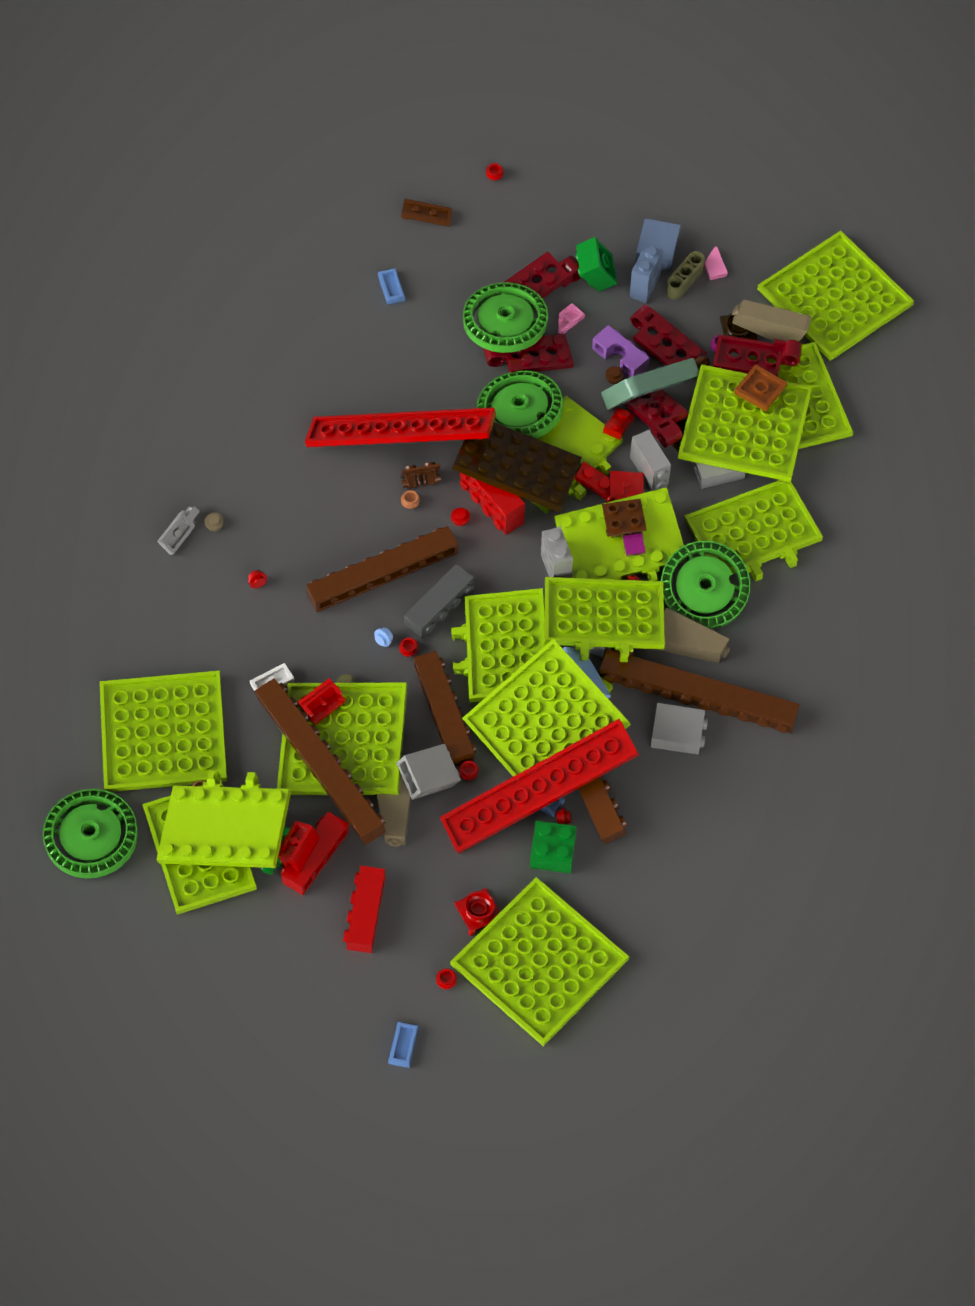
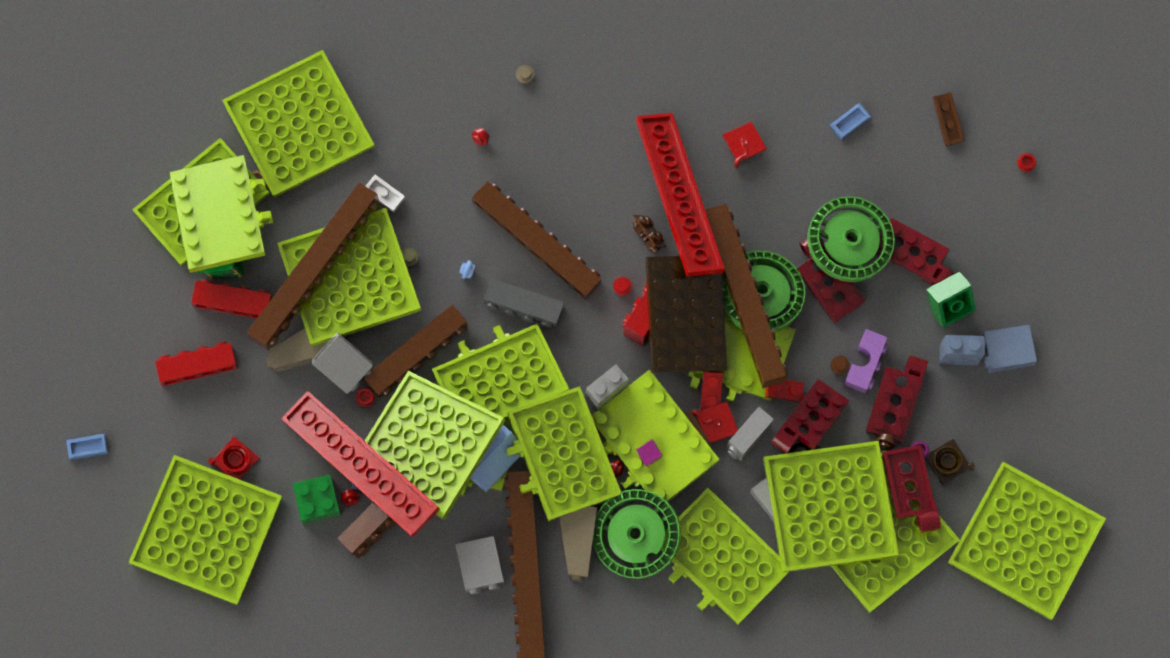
camera: 65 degrees right, 15 degrees up
(90, 847) = (172, 94): bright green piece -> none
(178, 530) = (502, 48): light grey hinge -> none
(298, 845) = (223, 282): red hinge -> none
(322, 701) = (372, 244): red hinge -> none
(372, 371) = (744, 142): none -> red hat
(408, 647) = (467, 296): red plate -> none
(410, 499) = (621, 235): nougat plate -> none
(446, 979) = (159, 458): red plate -> none
(537, 411) = (746, 299): none -> reddish brown brick
(569, 317) = (886, 298): bright pink tile -> none
(624, 518) = (668, 432): reddish brown hinge -> none
(649, 382) = (816, 389): sand green beam -> none
(685, 275) = (993, 387): olive beam -> none
(715, 266) = (1011, 412): bright pink tile -> none
(760, 388) = (871, 506): dark orange plate -> none
(771, 321) = (956, 488): dark tan slope -> none

